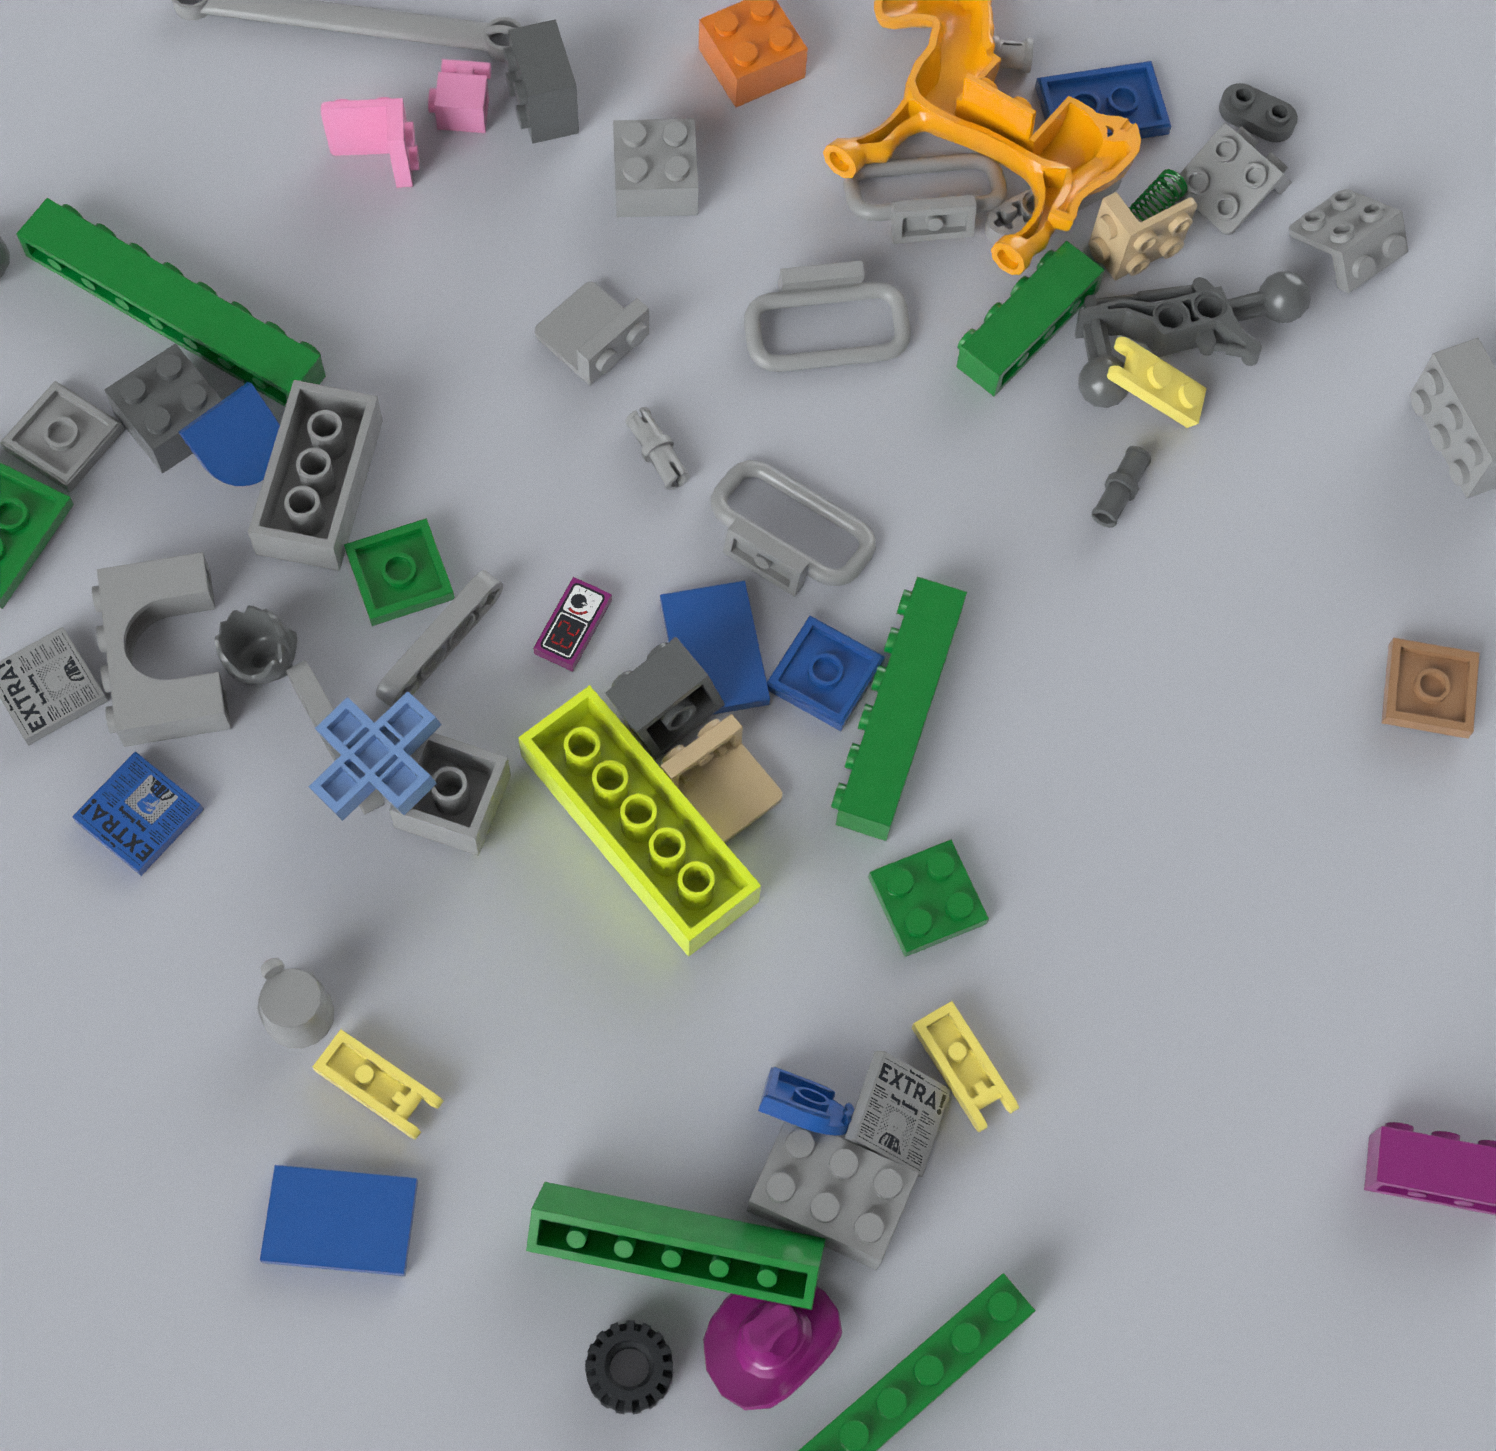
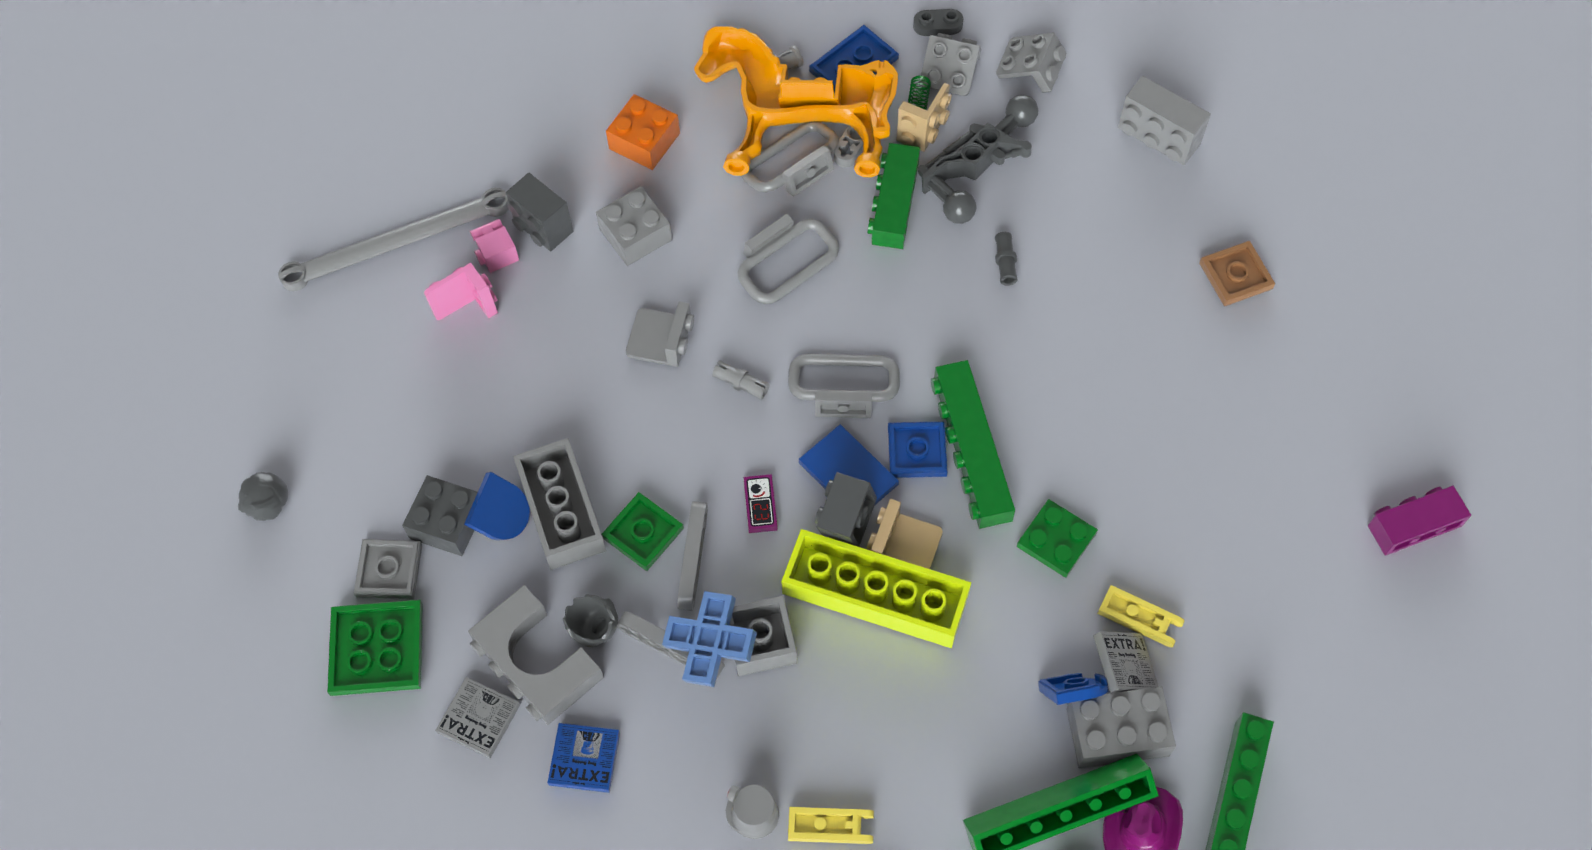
camera: 25 degrees left, 5 degrees down
(168, 301) = (402, 455): green brick -> none
(1158, 383) = (989, 192): light yellow hinge -> none

